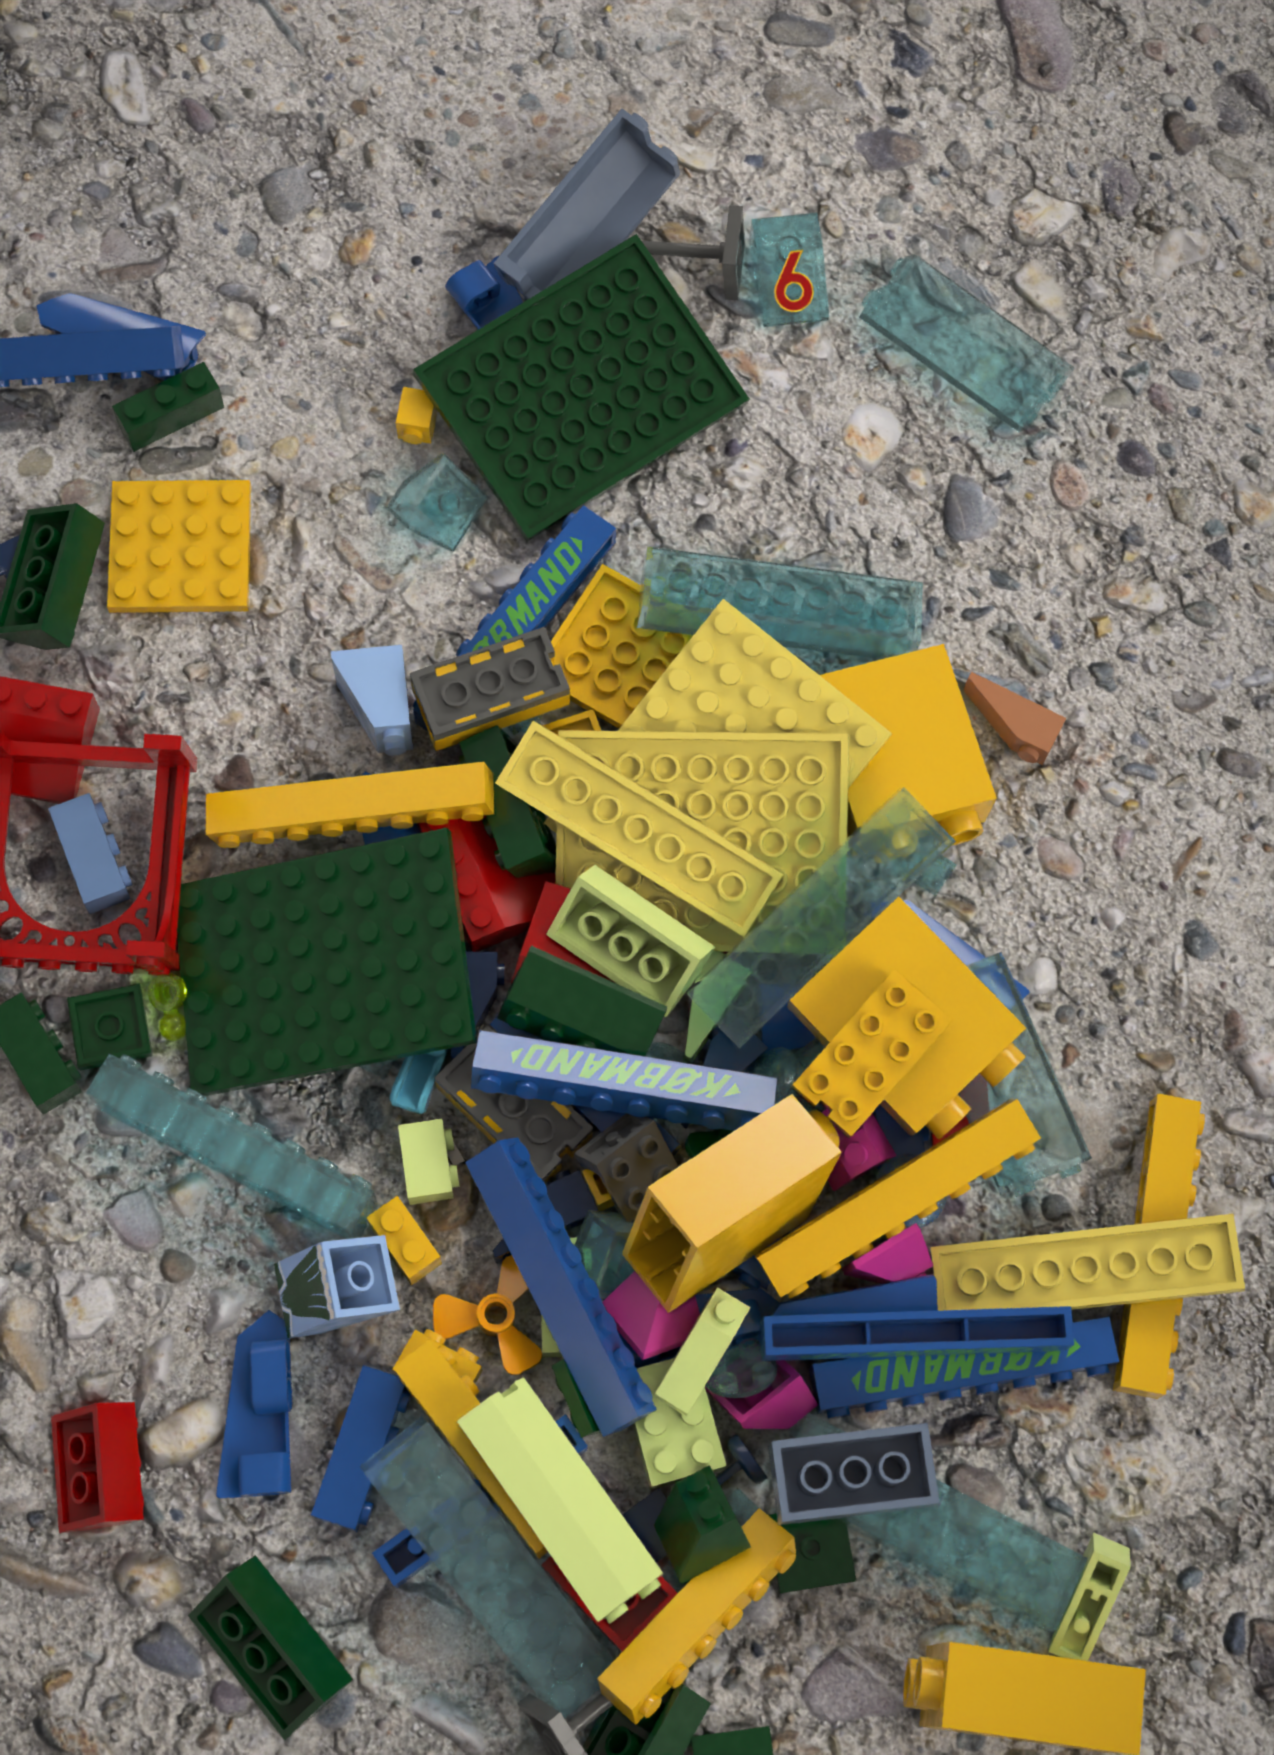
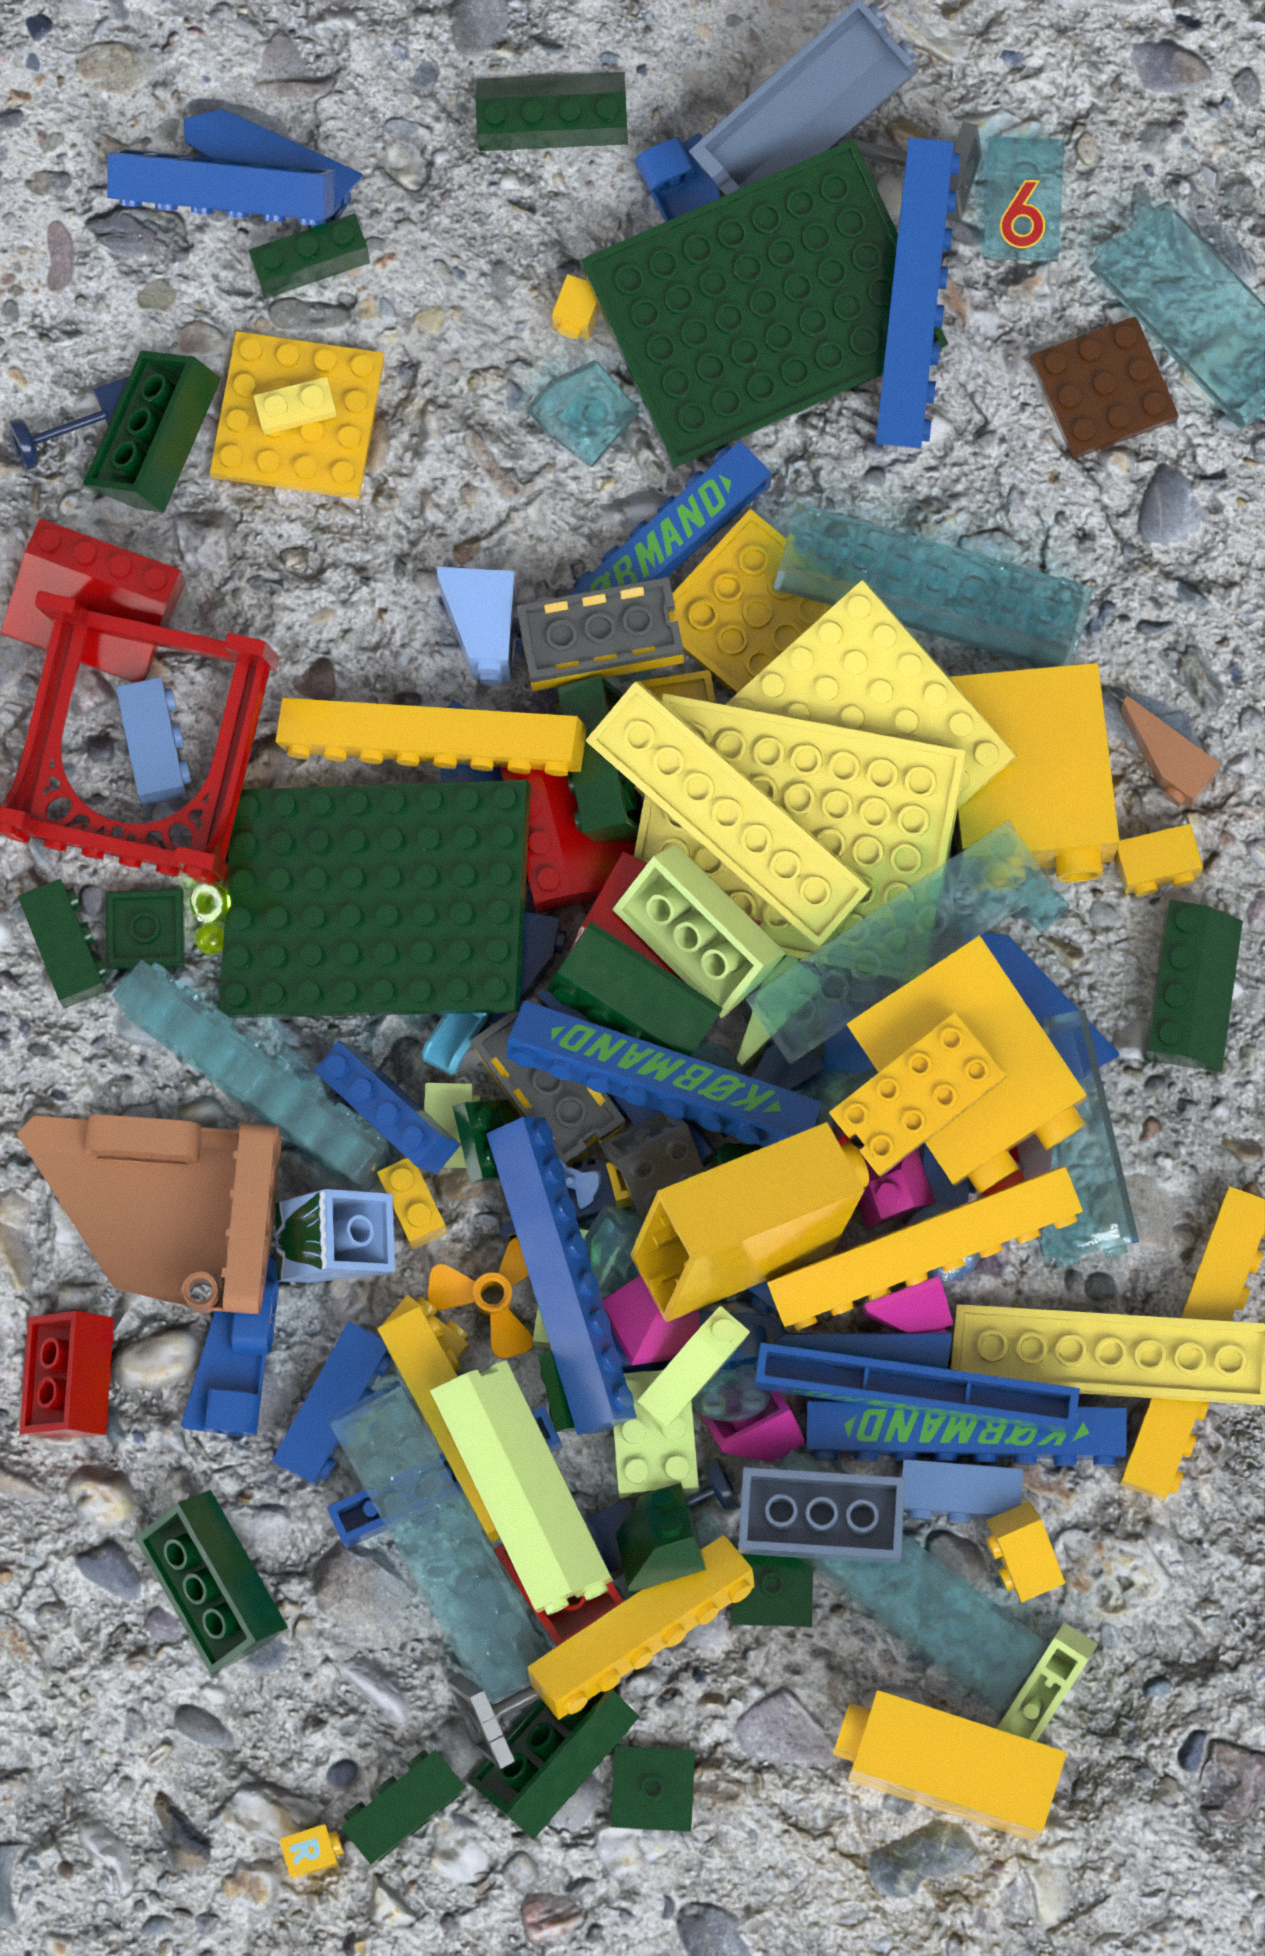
camera: 20 degrees right, 5 degrees up
(169, 1282) = (167, 1202): none -> nougat panel
(176, 535) = (295, 405): none -> light yellow plate
(365, 258) = (551, 111): none -> dark green slope
(366, 1154) = (387, 1107): none -> blue brick
(451, 1154) = (473, 1123): none -> dark green plate
(565, 1193) = (585, 1183): none -> medium blue piece
(715, 355) = (915, 293): none -> blue brick
(891, 417) = (1104, 387): none -> reddish brown plate
(975, 1423) = (959, 1490): none -> medium blue brick
(1028, 812) = (1158, 860): none -> yellow brick
(1044, 1472) = (1025, 1552): none -> yellow brick
(1081, 920) = (1193, 987): none -> dark green slope

